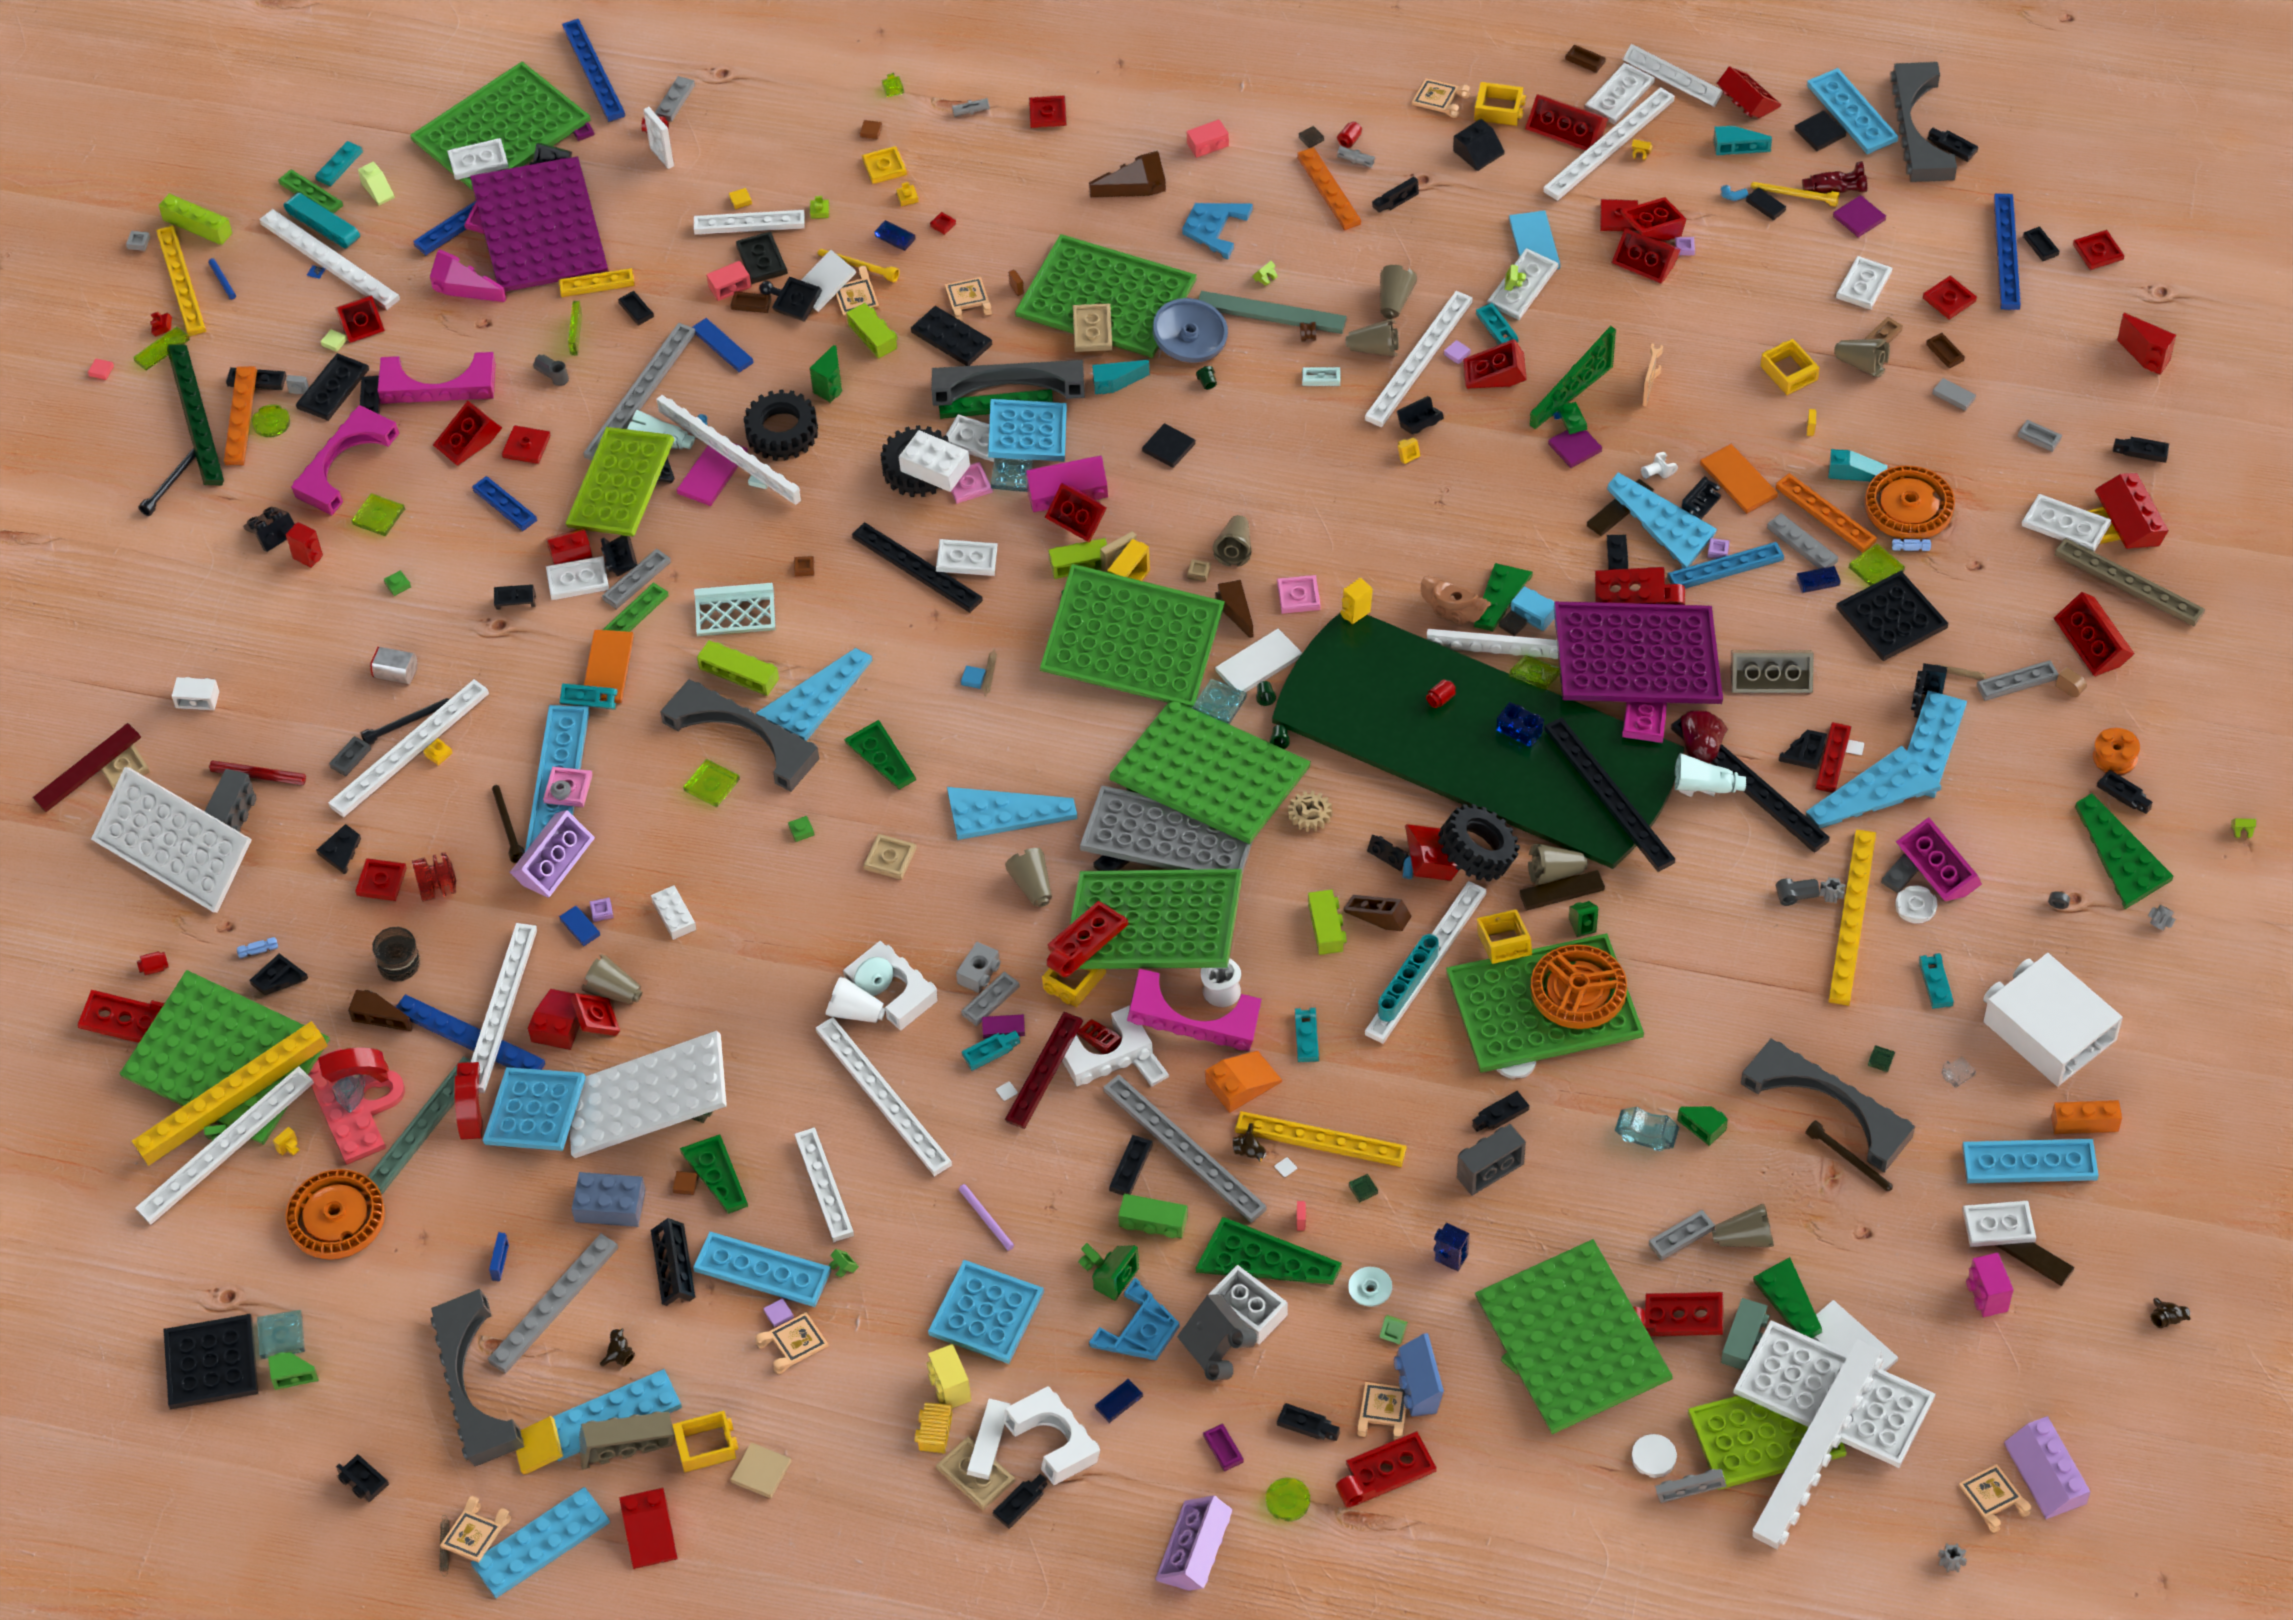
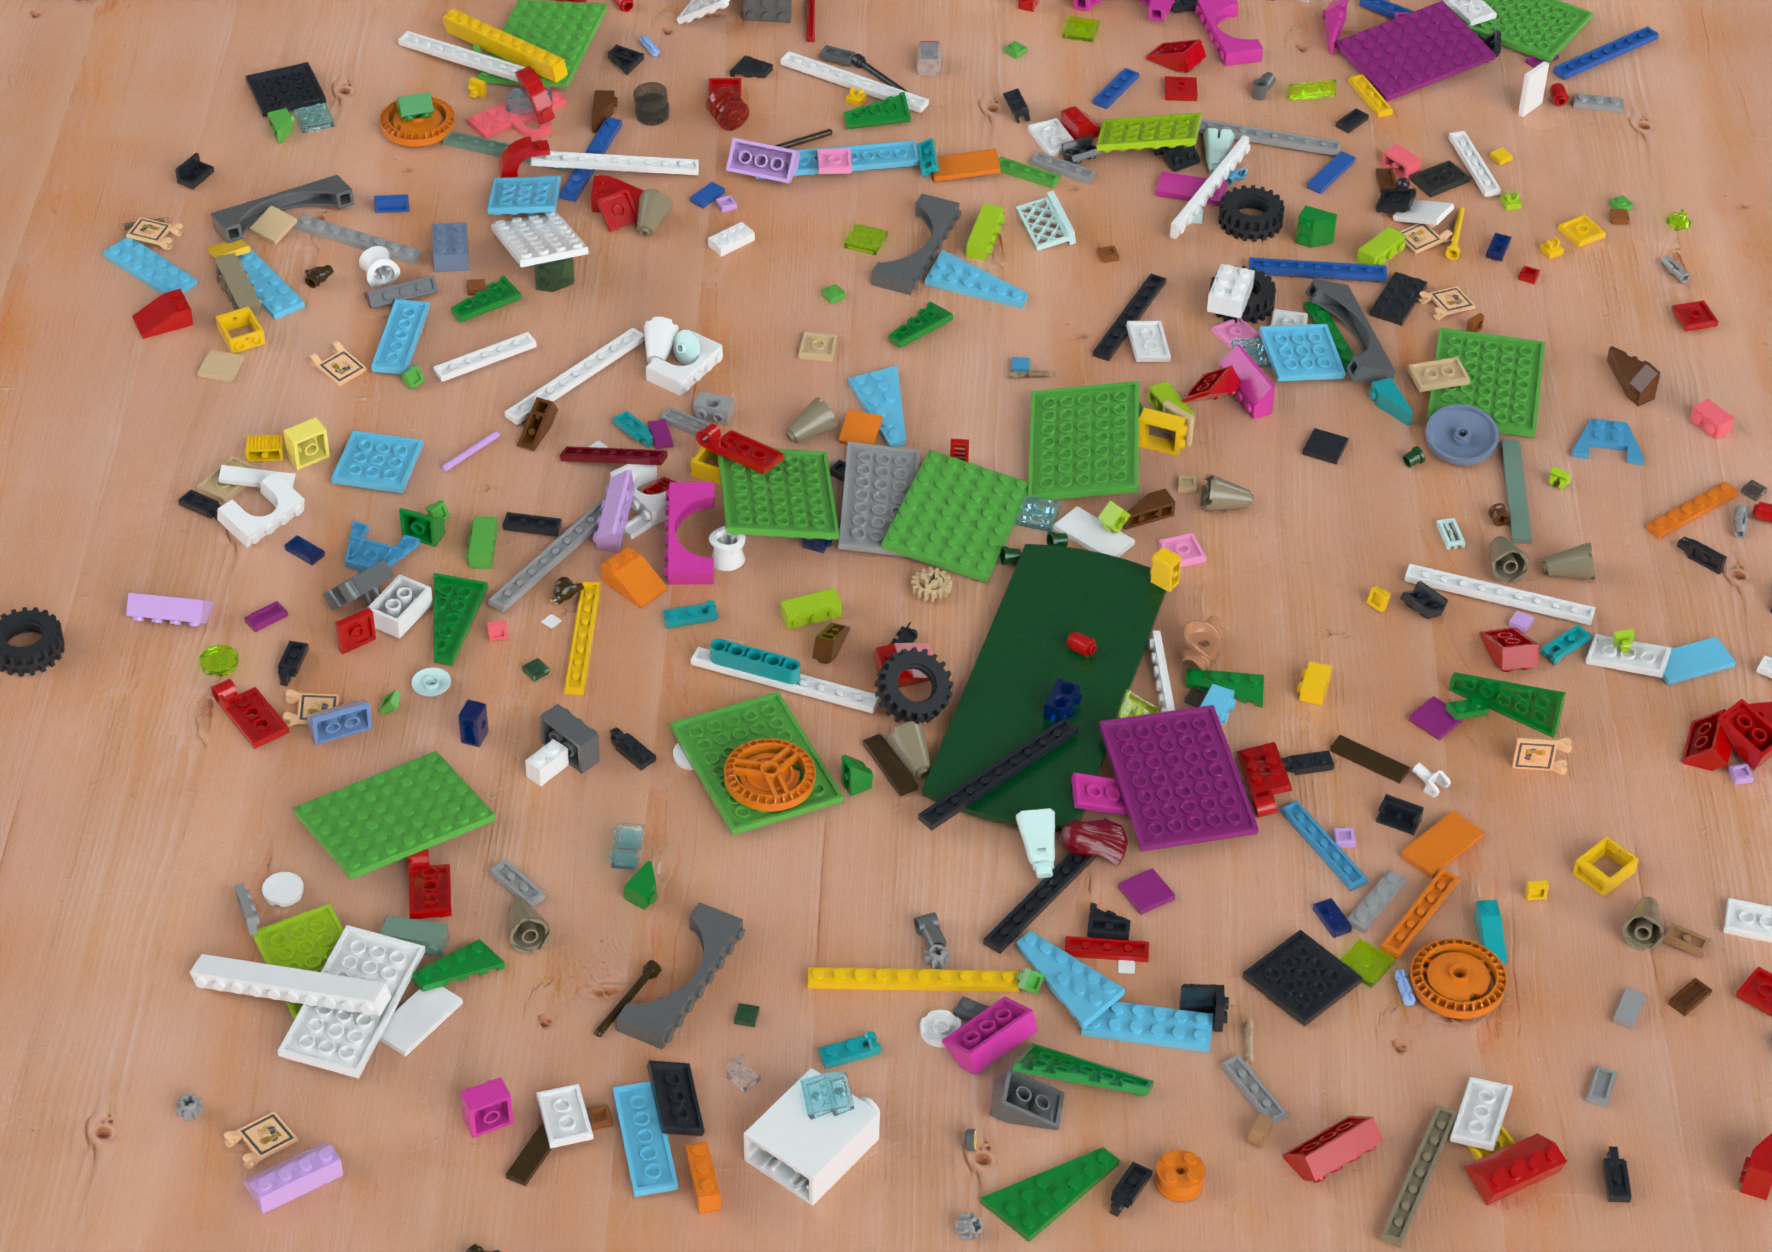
camera: 75 degrees right, 10 degrees down
(328, 1204) = (415, 106): none -> slope
(483, 727) = (886, 112): none -> green wing
(500, 1392) = (273, 225): none -> tan tile
(563, 793) = (824, 153): light grey plate -> none
(633, 1276) = (379, 266): none -> white hat
(778, 1313) = (363, 353): lavender tile -> none
(850, 123) = (1621, 203): none -> bright green plate
(888, 391) = (1319, 269): none -> blue plate
(964, 1141) = (538, 423): none -> reddish brown slope
(1049, 834) = (860, 427): none -> orange tile
(1119, 750) = (962, 454): none -> red slope
(1150, 1073) = (615, 512): none -> lavender slope
(1255, 634) = (1113, 517): none -> lime brick
(1282, 1346) = (355, 630): none -> red plate
(1507, 948) = (802, 714): yellow window -> none
(1515, 1188) = (547, 762): none -> white brick
(1516, 524) = (1315, 683): none -> yellow brick
(1667, 523) = (1359, 794): medium azure wing -> none
(1765, 712) = (1146, 891): none -> magenta tile
(1772, 671) = (1197, 887): dark tan slope -> none
(1873, 820) = (1030, 980): none -> bright green tile
(1985, 1128) = (675, 1098): none -> black tile
(1989, 807) = (1062, 1066): none -> green wing
(1995, 1195) = (600, 1117): none -> dark orange tile
(2018, 851) = (1026, 1101): none -> dark grey slope
(2030, 987) = (827, 1094): none -> clear light blue slope

